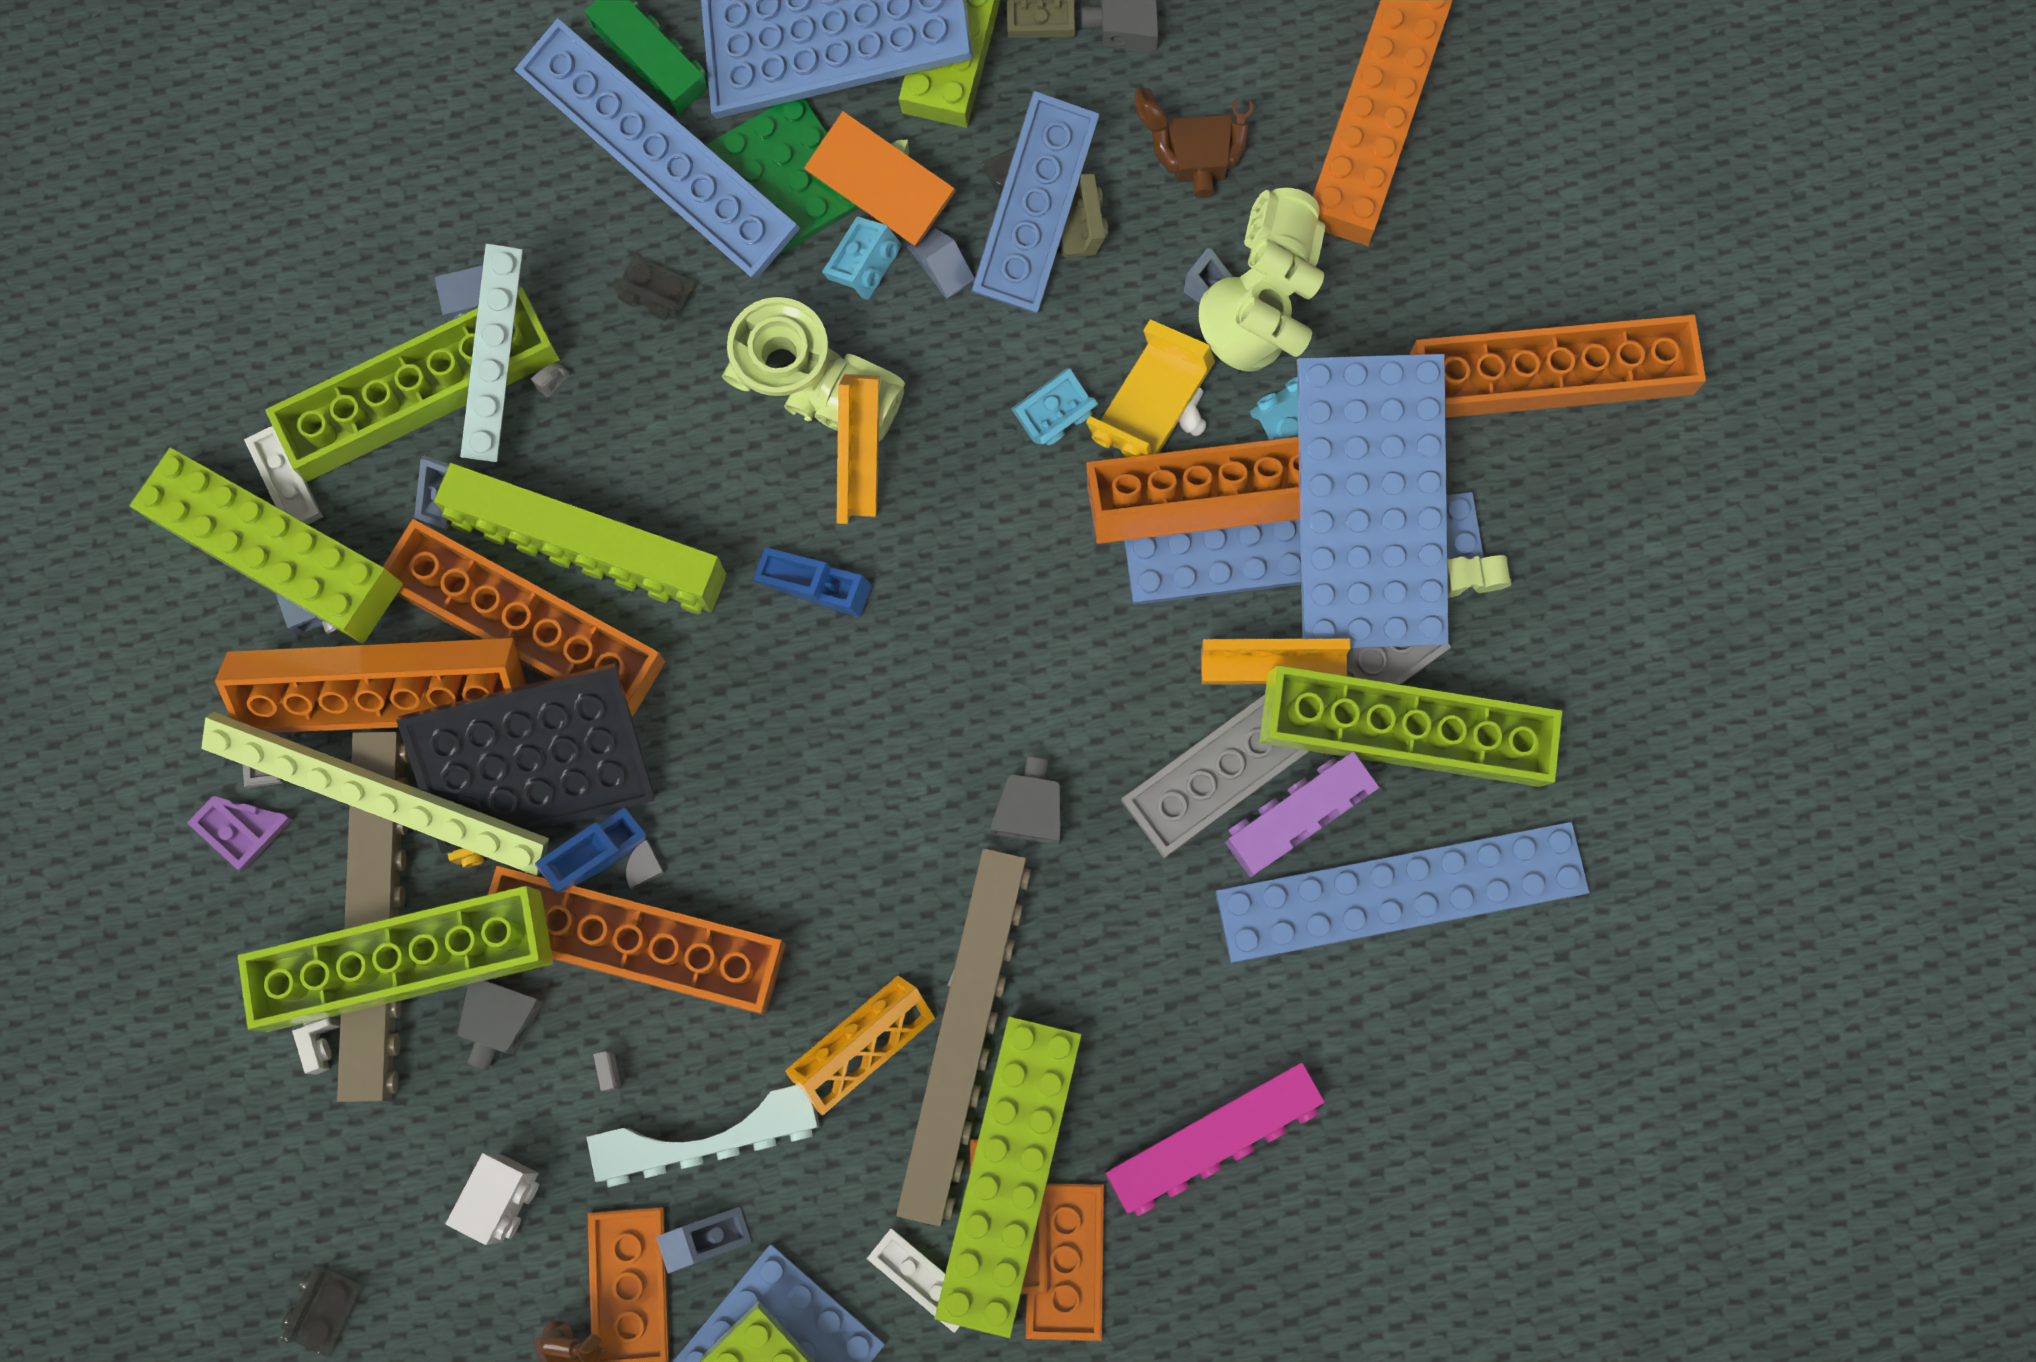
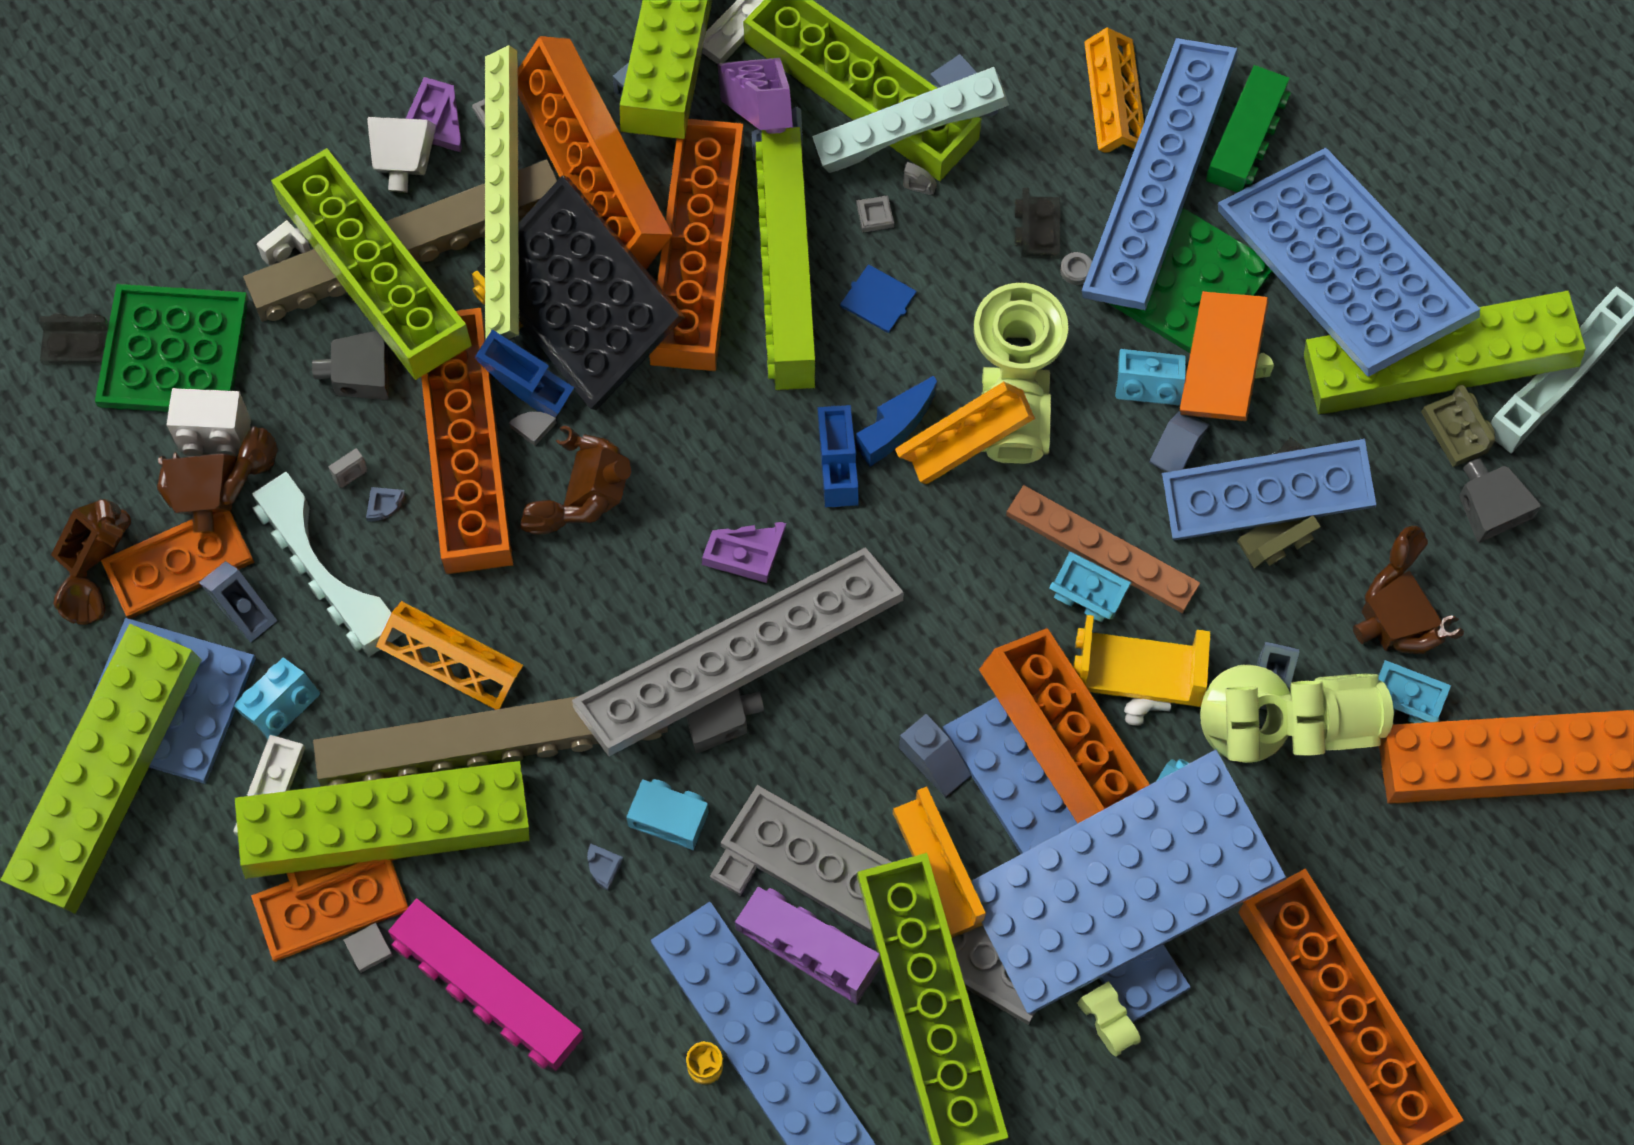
camera: 65 degrees right, 10 degrees down
(263, 880) = (400, 148): none -> white torso
(378, 1209) = (167, 342): none -> green plate
(386, 487) = (757, 92): none -> medium lavender wedge
(542, 153) = (1111, 89): none -> light orange fence
(564, 1223) = (214, 481): none -> reddish brown torso
(565, 436) = (875, 213): none -> light grey tile
(659, 473) = (878, 298): none -> blue piece
(659, 1049) = (383, 502): none -> sand blue tile
(716, 274) = (1075, 268): none -> light grey tile
(743, 829) = (593, 487): none -> reddish brown torso
(803, 511) = (895, 421): none -> blue slope
(827, 1237) = (277, 698): none -> medium azure bracket
(873, 712) = (744, 550): none -> medium lavender wing
(984, 762) = (736, 651): none -> light grey plate
(1016, 380) = (1103, 548): none -> nougat plate
(1114, 894) = (668, 813): none -> medium azure brick
(1127, 1240) = (368, 947): none -> light grey tile
(1137, 978) = (603, 865): none -> sand blue tile
(1160, 622) = (934, 755): none -> sand blue slope
(1194, 857) = (733, 872): none -> light grey tile
(1280, 169) = (1414, 692): none -> medium azure bracket
(1378, 955) = (706, 1056): none -> yellow wheel

